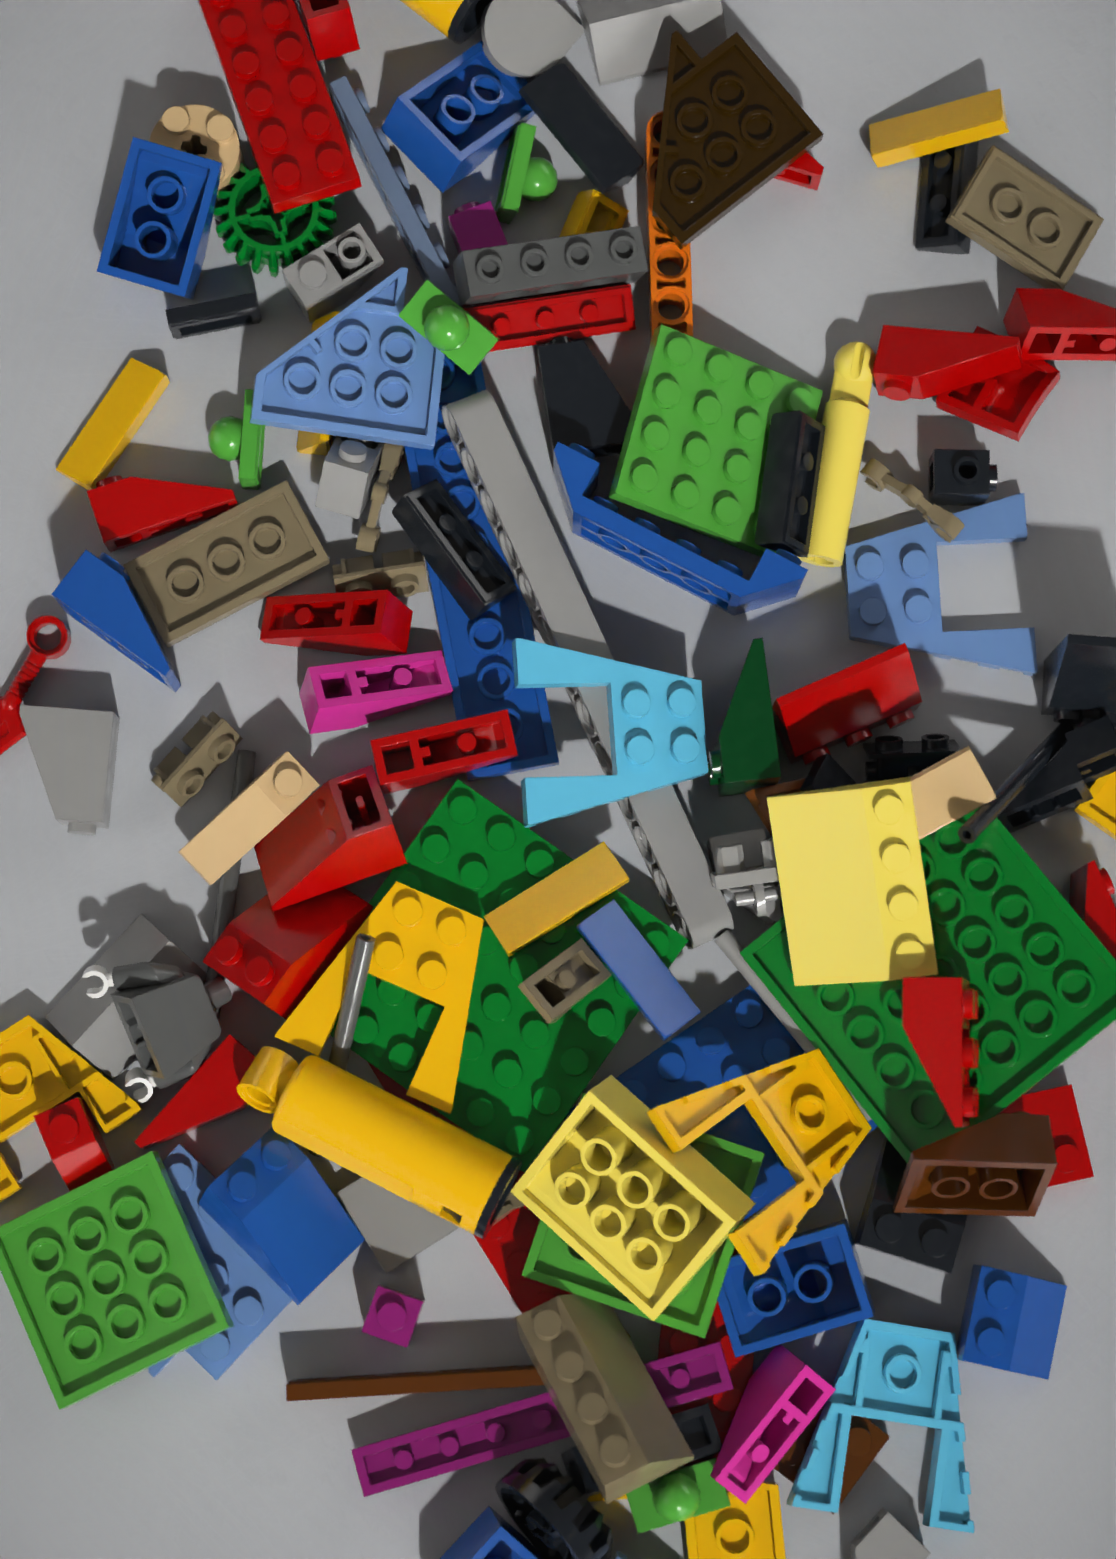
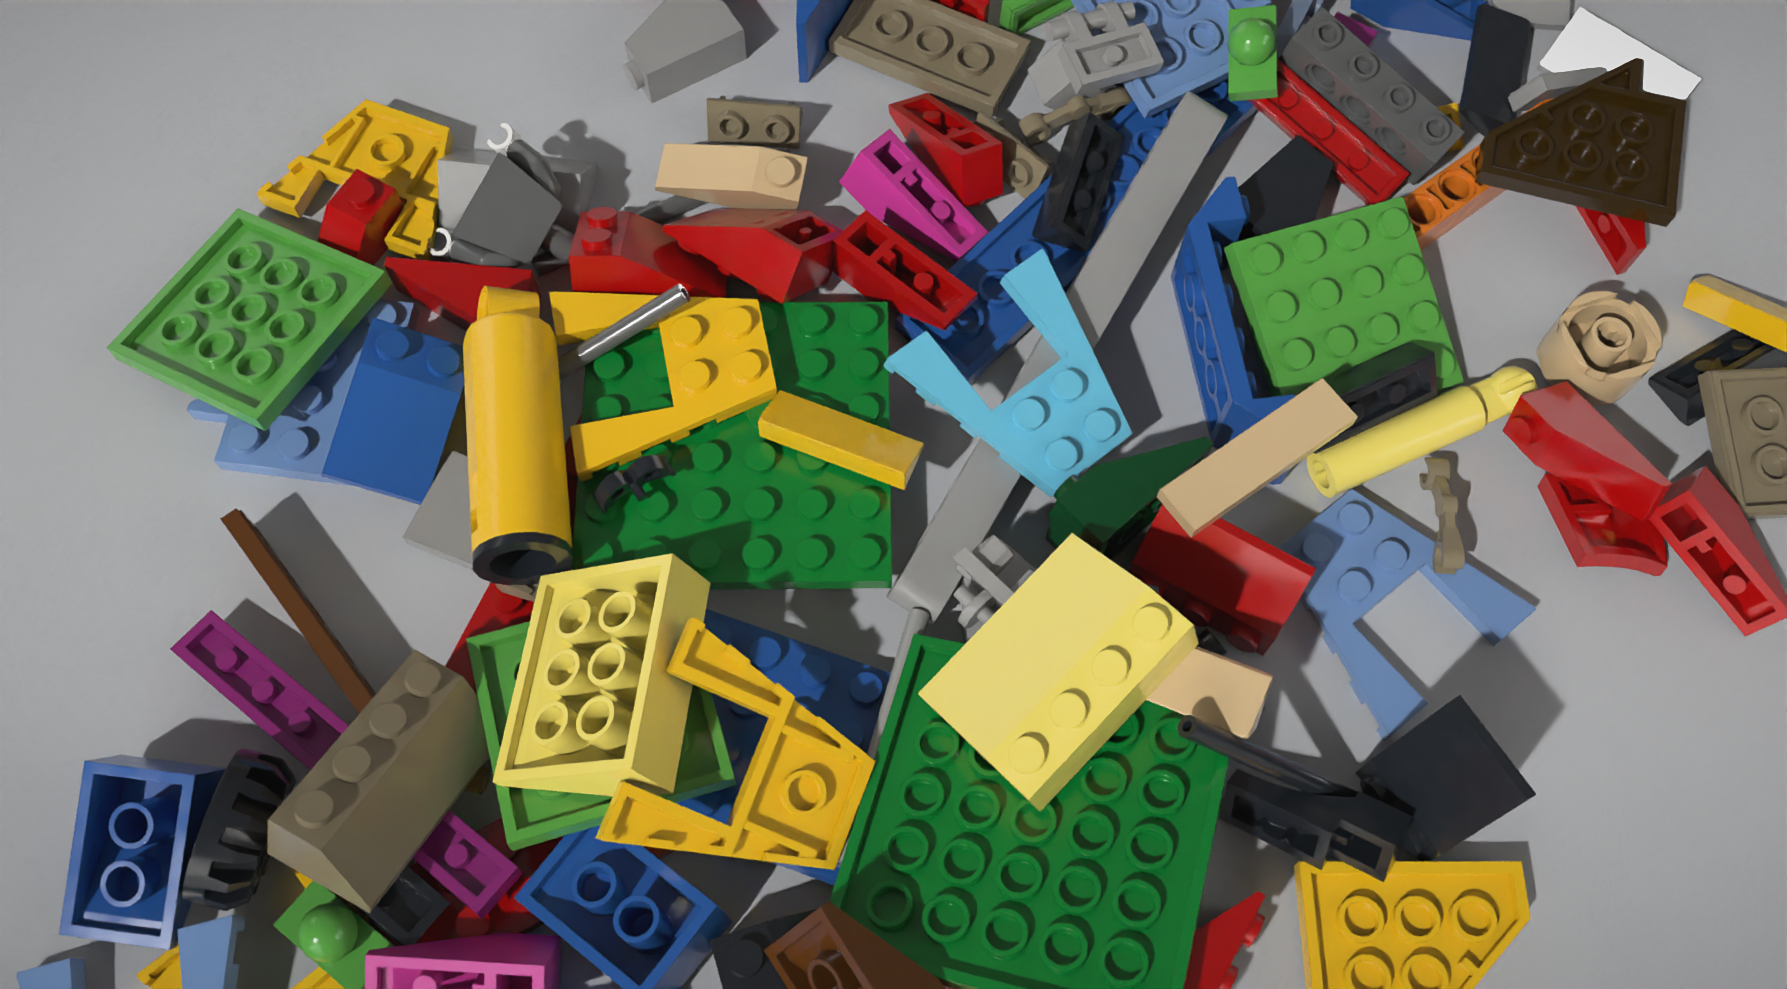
camera: 55 degrees right, 15 degrees down
(378, 448) = (1108, 57): none -> light grey plate
(393, 1316) = (362, 564): magenta brick -> none
(480, 1076) = (637, 474): none -> black piece
(523, 176) = (1421, 49): bright green tile -> none
(564, 981) = (763, 480): dark tan slope -> none
(638, 969) = (827, 548): blue slope -> none
(642, 102) = (1551, 86): none -> light grey tile
(798, 617) = (1256, 457): none -> tan tile
(870, 300) = (1600, 347): none -> tan brick
(938, 1027) = (970, 849): red slope -> none
(960, 477) = (1501, 541): black brick -> none

